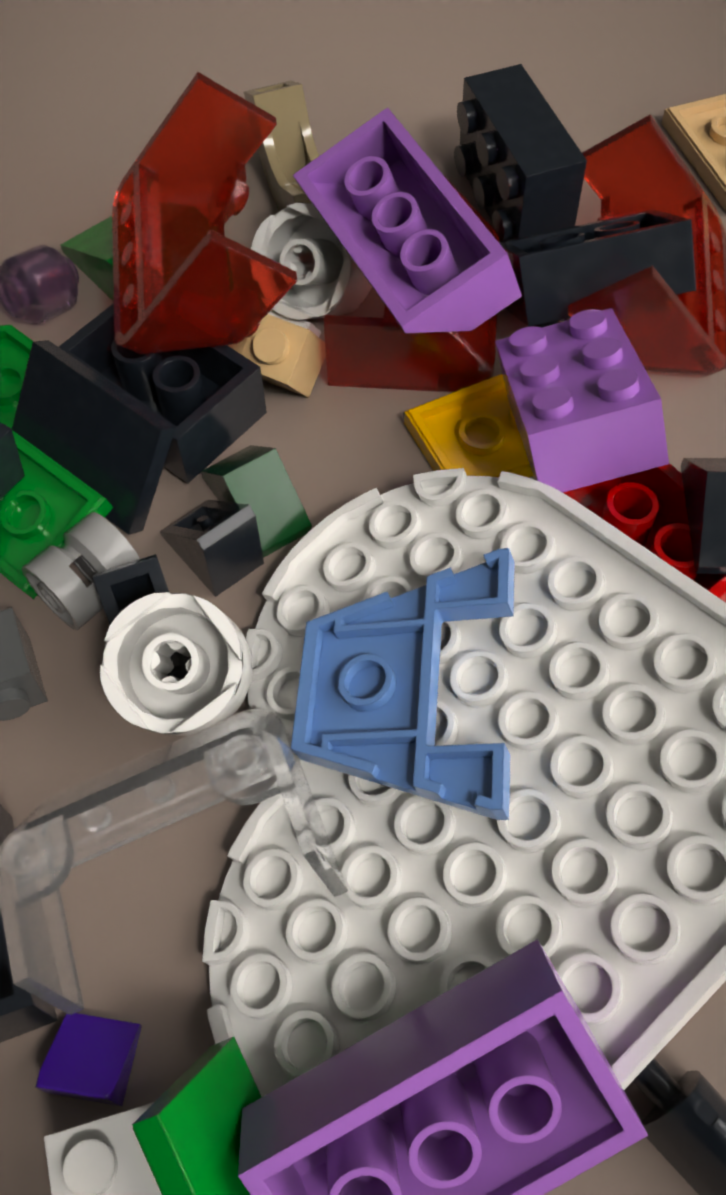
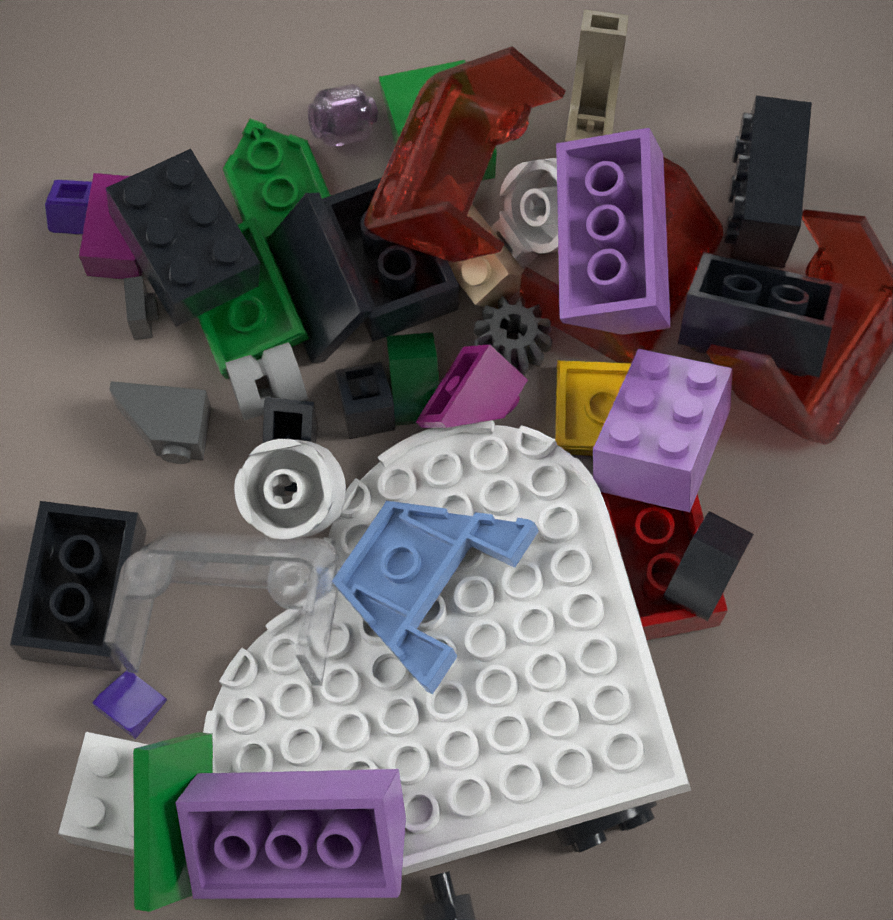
camera: 25 degrees right, 10 degrees up
(334, 466) = (474, 390): none -> magenta slope
(343, 406) = (527, 323): none -> dark grey gear

